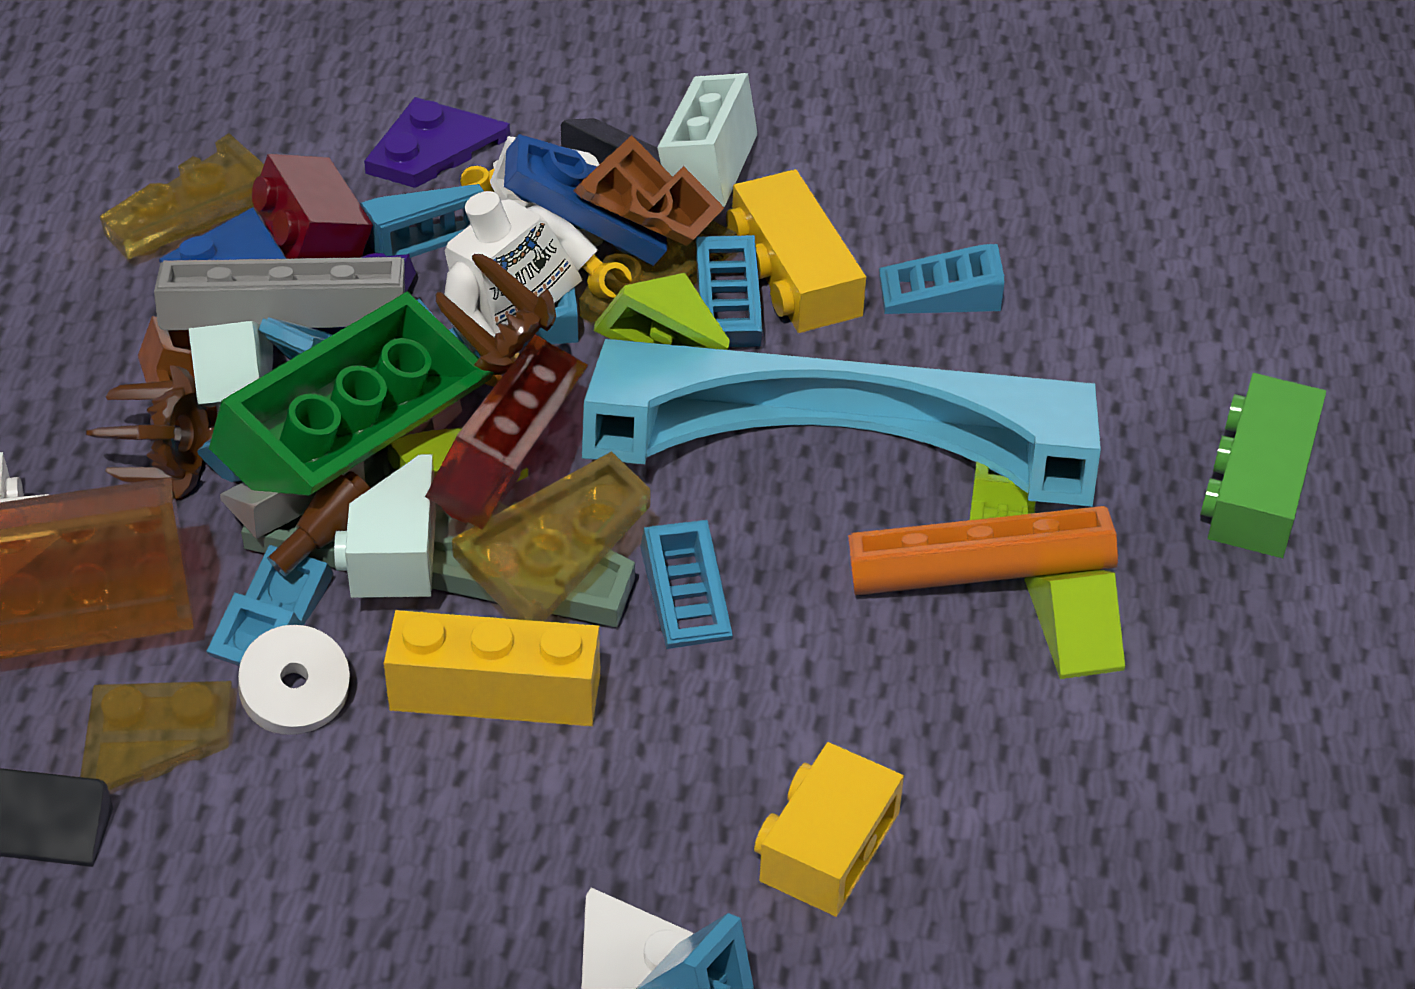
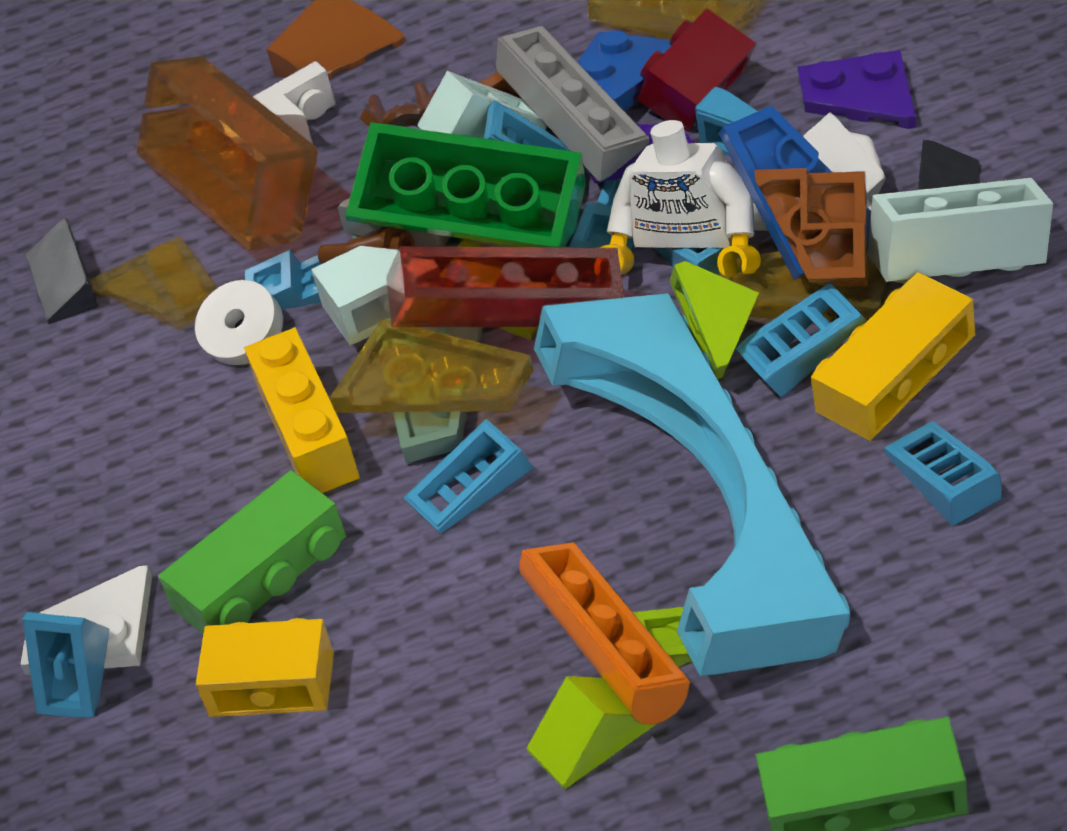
camera: 75 degrees right, 0 degrees up
(532, 315) = (591, 229): reddish brown piece -> none
(668, 786) = (254, 554): none -> bright green brick

